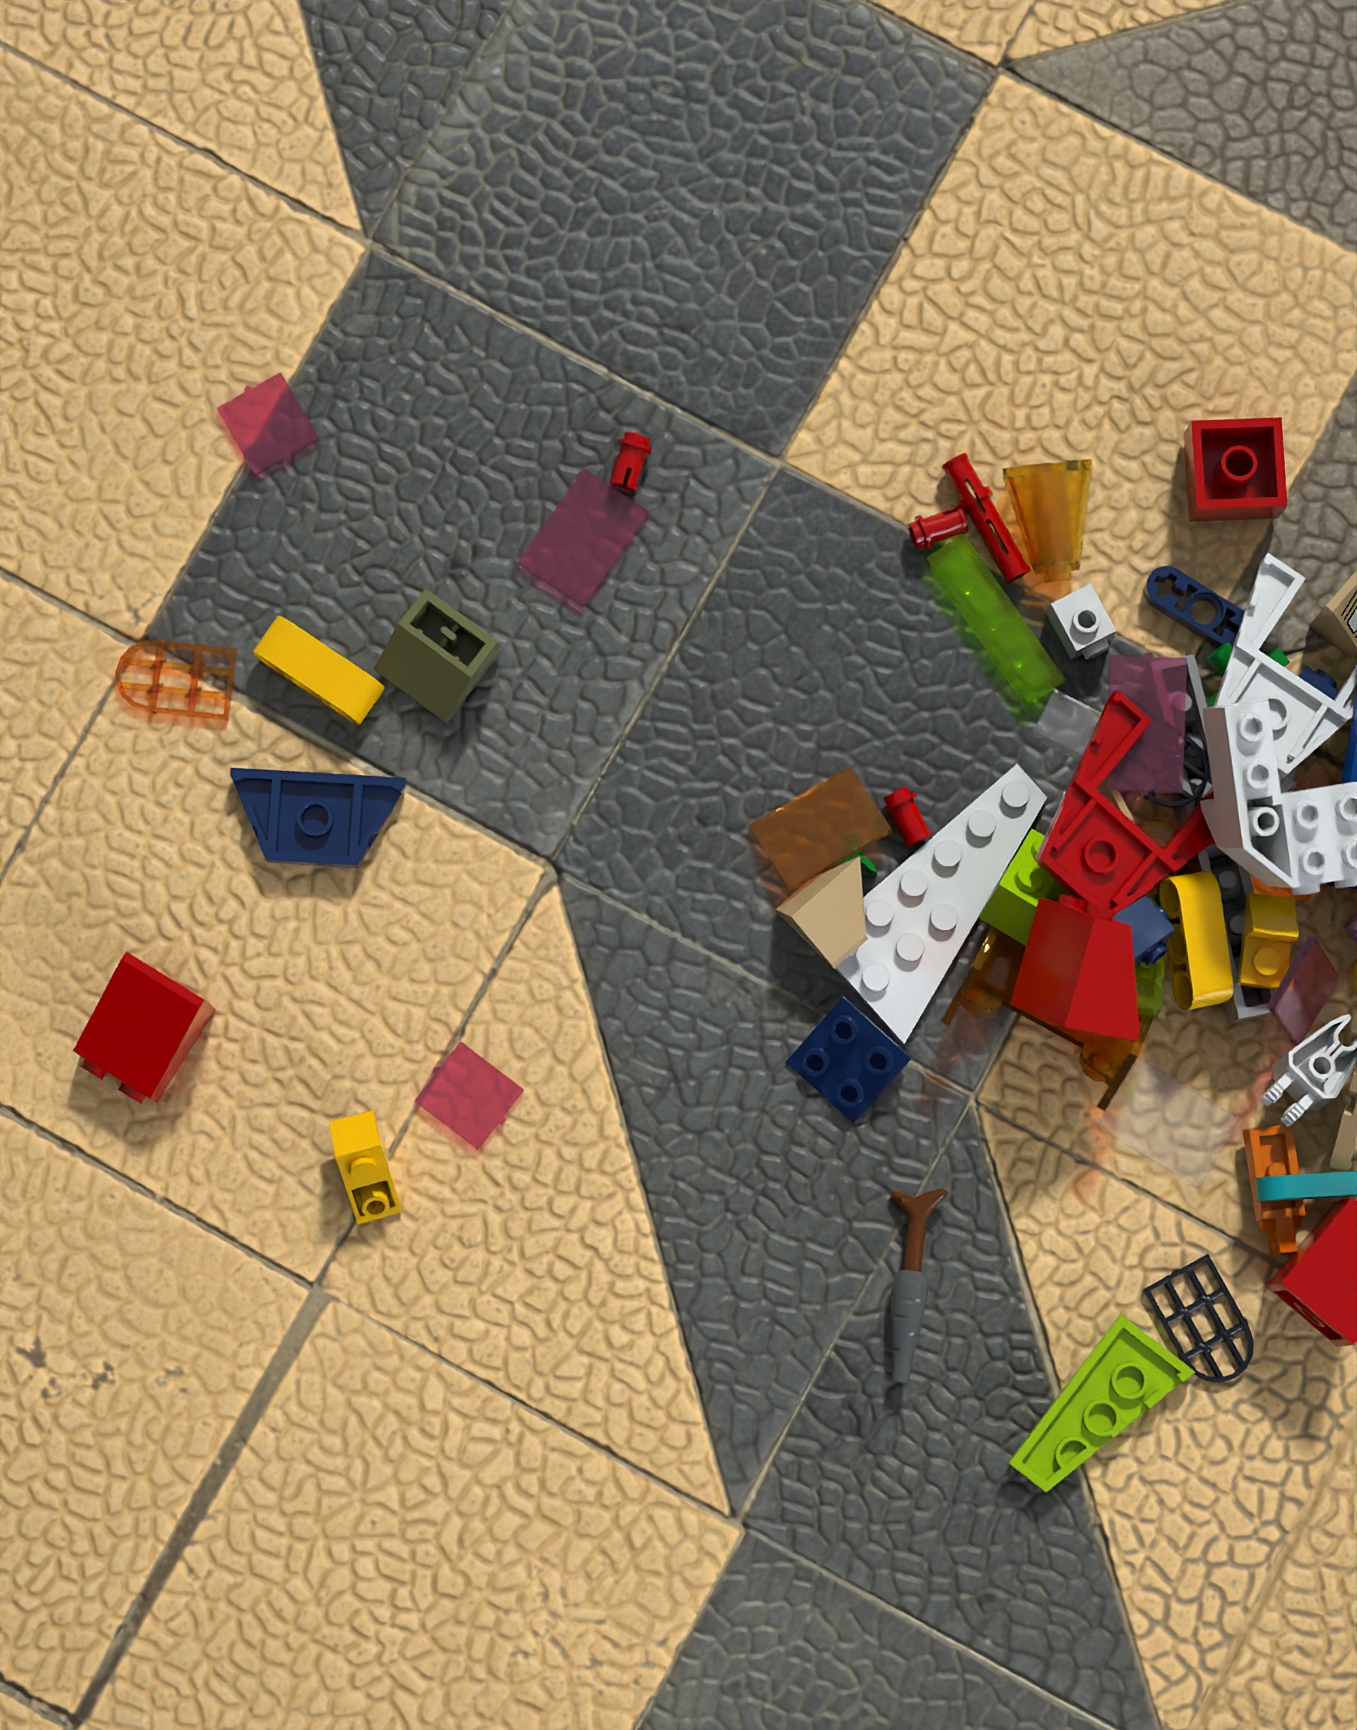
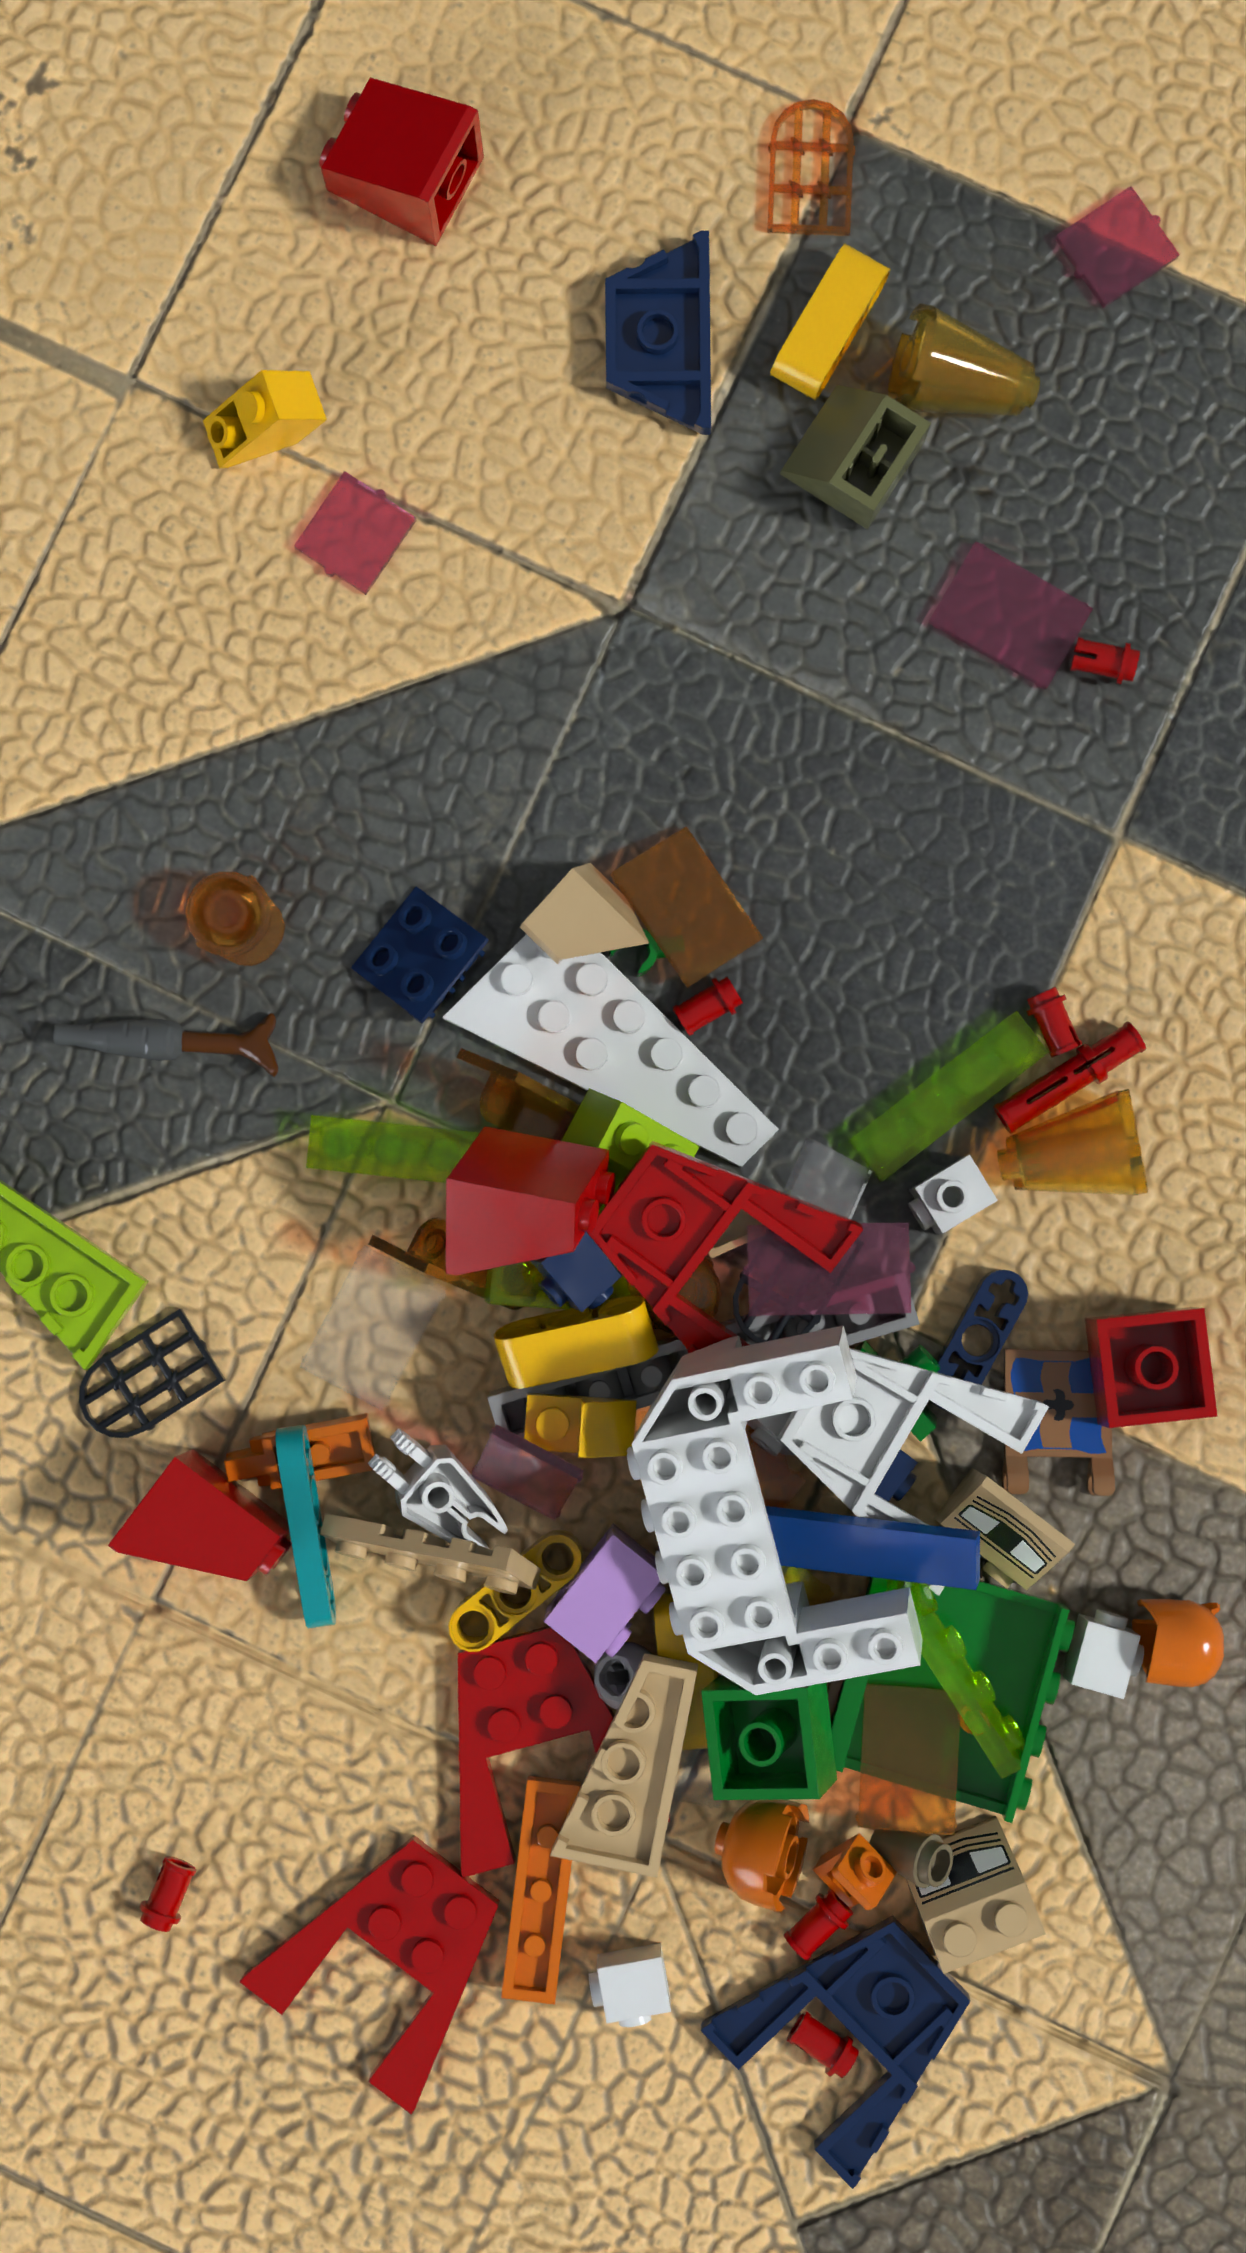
camera: 90 degrees right, 5 degrees up
(373, 566) = (958, 369): none -> clear yellow cone
(809, 1217) = (234, 918): none -> clear orange hat
(1017, 1088) = (385, 1148): none -> clear neon green plate
(1244, 543) = (1070, 1424): none -> medium nougat flag

